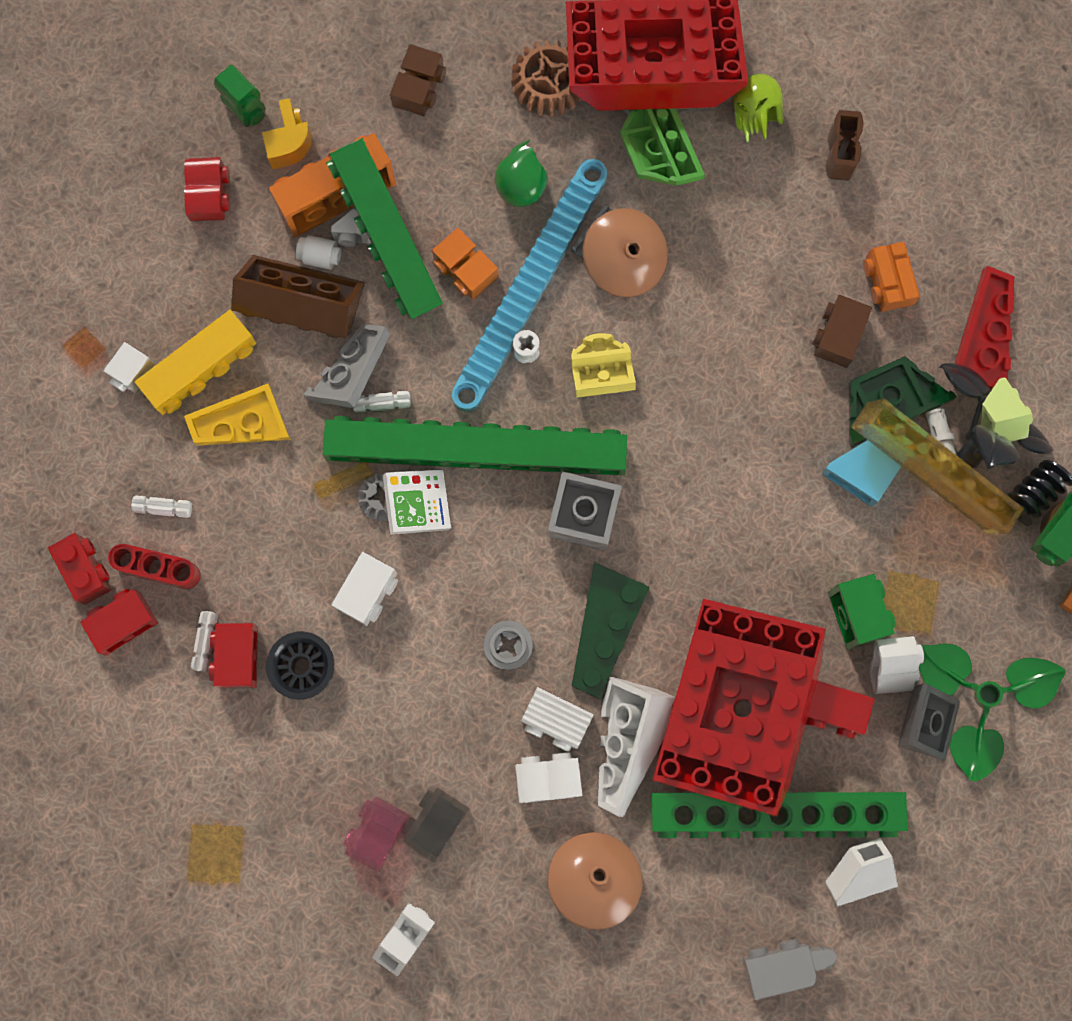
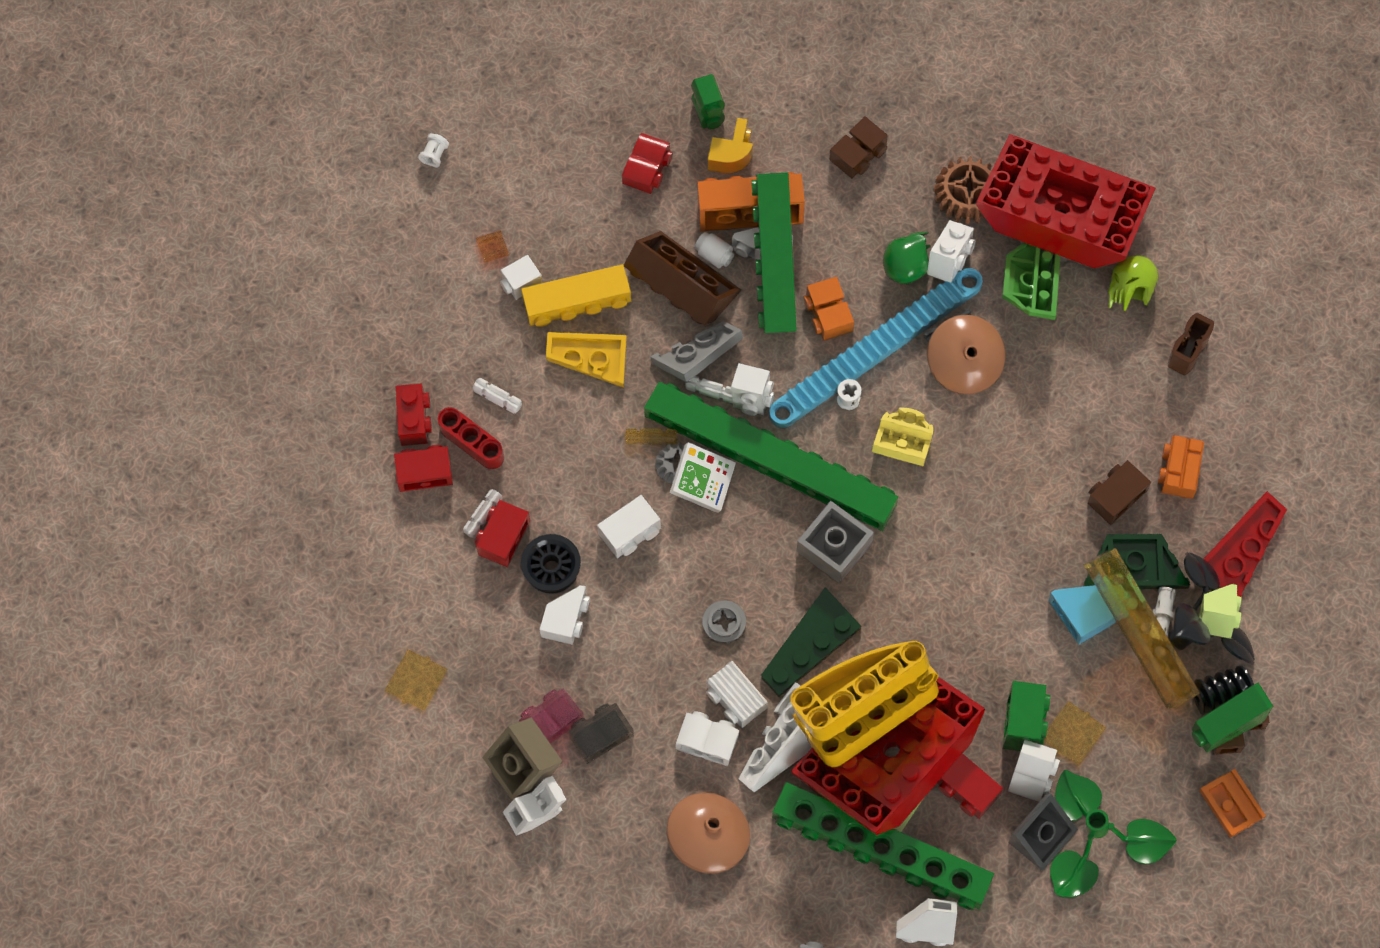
camera: 25 degrees right, 10 degrees down
(339, 715) = (562, 616): none -> white slope
(367, 896) = (522, 758): none -> dark tan brick
(426, 386) = (752, 390): none -> white brick
(562, 150) = (951, 251): none -> white brick
(695, 676) = (856, 692): none -> yellow panel

